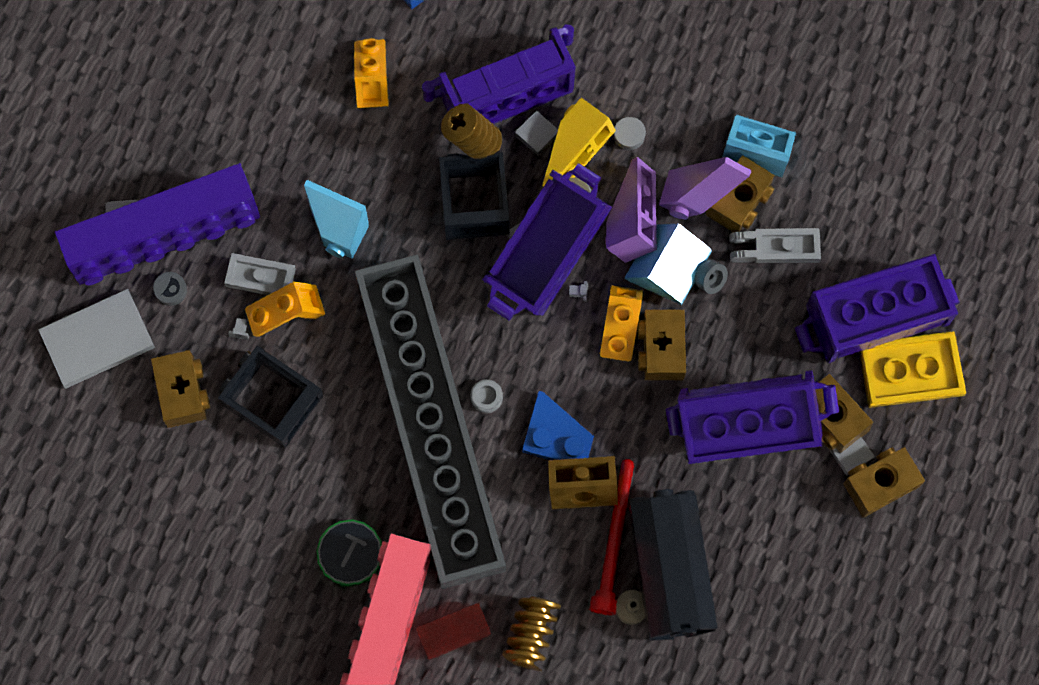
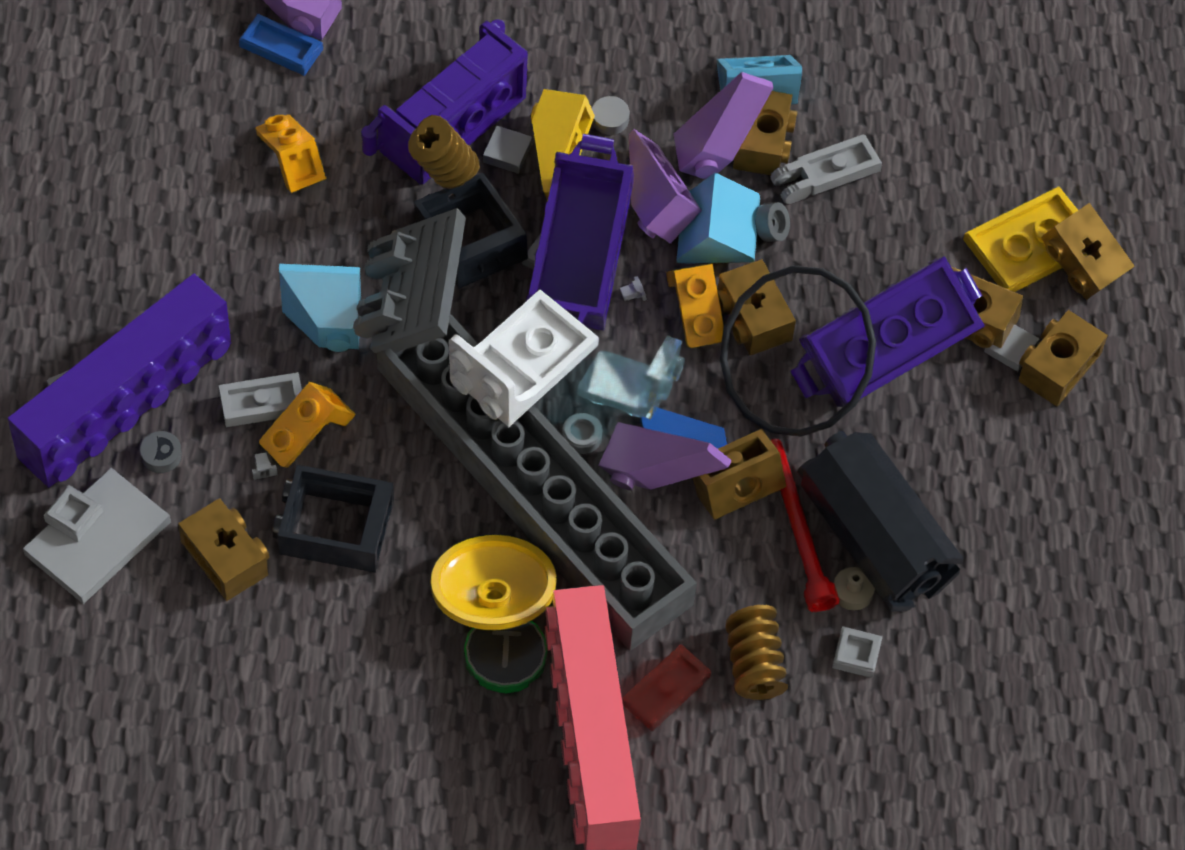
camera: 25 degrees left, 15 degrees down
(83, 316) = (73, 513): none -> light grey tile
(363, 483) = (493, 582): none -> yellow dish
(404, 239) = (417, 283): none -> dark grey hinge
(453, 330) = (520, 358): none -> white bracket
(519, 444) = (657, 458): none -> medium lavender slope
(538, 372) = (630, 383): none -> clear light blue bracket
(610, 659) = (857, 652): none -> light grey tile
(726, 382) = (869, 360): none -> black piece
(878, 308) = (968, 186): dark purple container -> none
(957, 412) = (1105, 256): none -> pearl gold brick

